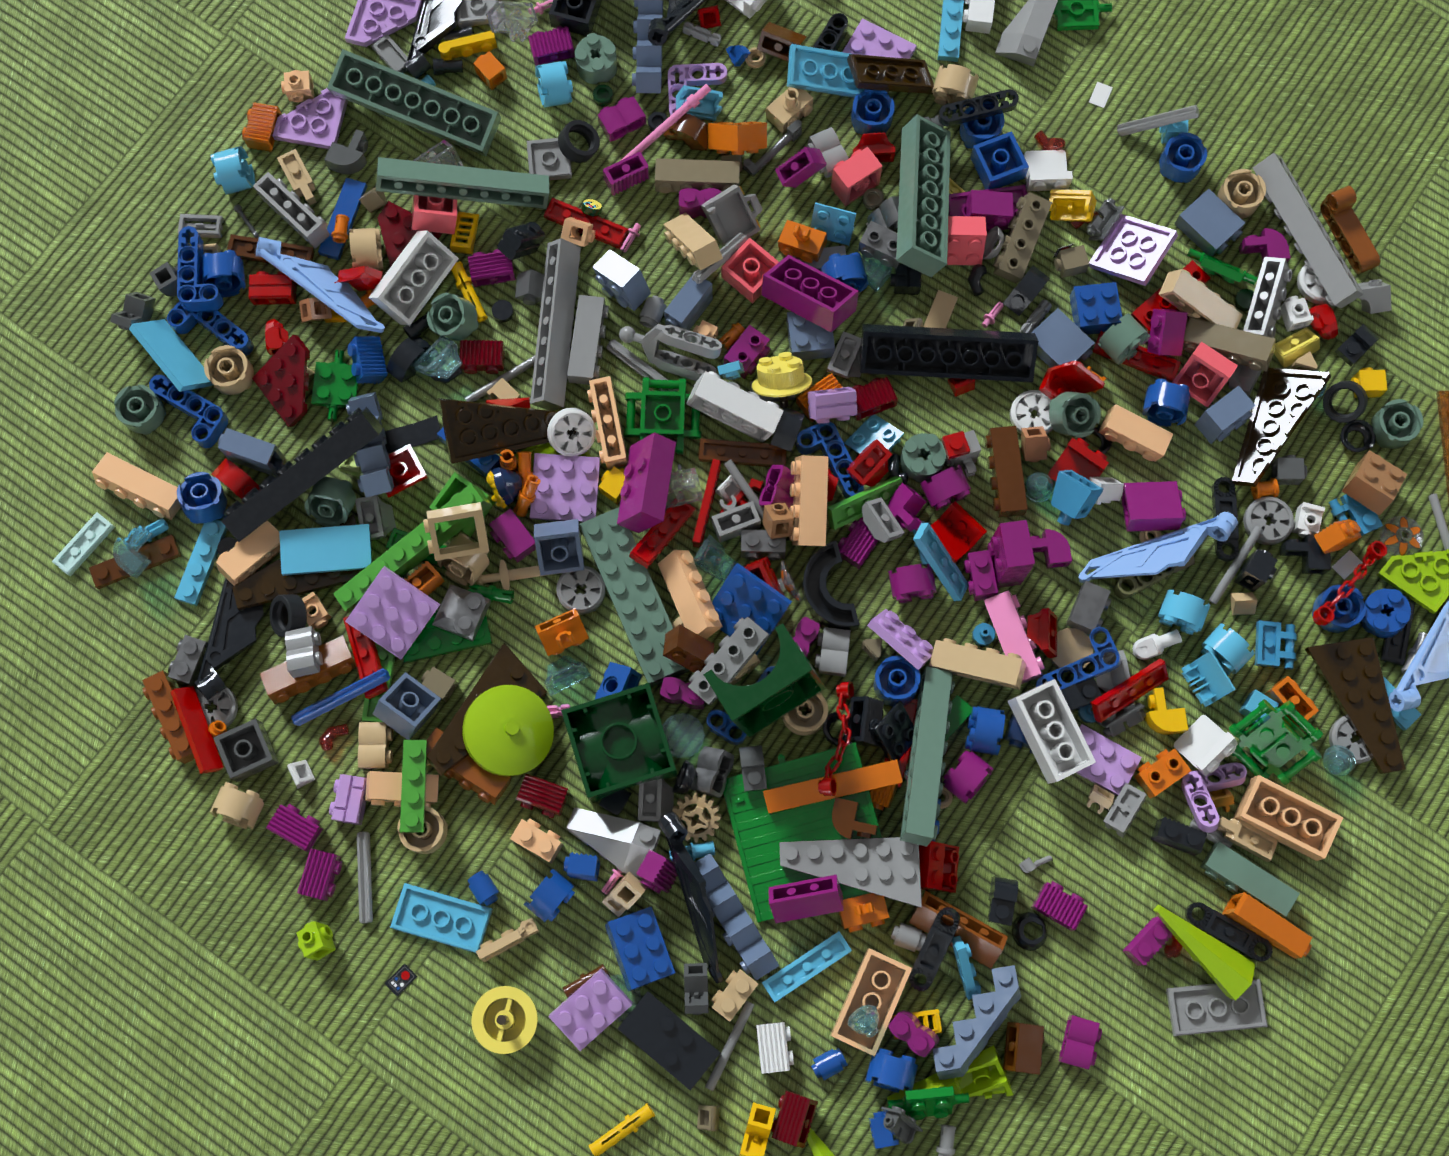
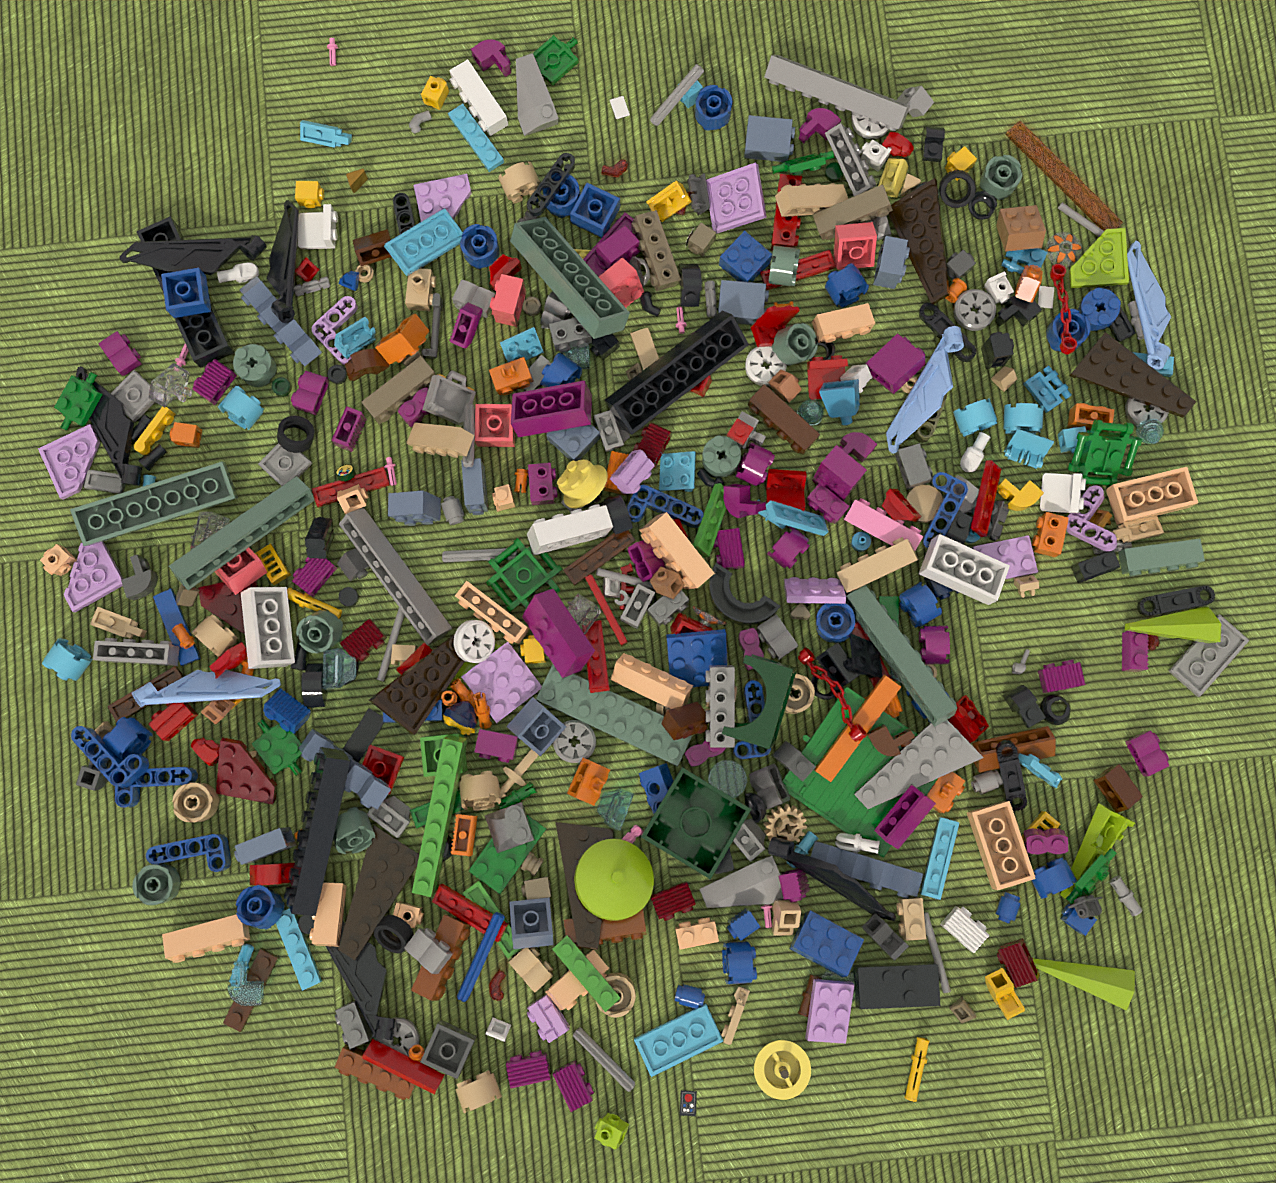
camera: 40 degrees left, 5 degrees up
(83, 544) = (202, 1010): light aqua tile -> none
(136, 309) = (90, 819): dark grey brick -> none
(171, 354) = (143, 827): medium azure tile -> none
(206, 229) = (92, 708): light grey tile -> none
(238, 209) = (94, 683): dark grey hinge -> none
(261, 126) = (57, 611): orange brick -> none
(325, 549) = (378, 867): medium azure tile -> none
(392, 612) = (465, 870): lavender plate -> none
(453, 660) = (532, 864): none -> dark tan wheel
(454, 513) = (451, 770): tan window -> none
(587, 339) = (426, 568): light grey brick -> none
(678, 338) = (476, 521): light grey piece -> none
(692, 101) = (352, 340): bright pink bar -> none
(713, 559) = (645, 644): clear light blue slope -> none
(731, 370) = (546, 507): medium azure plate -> none
(744, 887) = (856, 843): none -> white arm
(865, 1020) = (1011, 862): clear light blue brick -> none
(870, 464) = (692, 492): red slope -> none
(881, 521) = (734, 524): light grey slope -> none
(890, 74) = (469, 209): dark brown tile -> none
(974, 1033) = (1082, 808): sand blue brick -> none
(1047, 170) = (631, 190): white bracket -> none
(1124, 809) = (1048, 579): light grey hinge -> none
(1167, 332) = (806, 237): magenta brick -> none
(1236, 564) = (980, 357): light grey bar -> none
(1242, 192) = (772, 99): tan brick -> none
(1268, 925) = (1196, 576): orange slope -> none
(1348, 230) = (860, 69): dark orange beam -> none

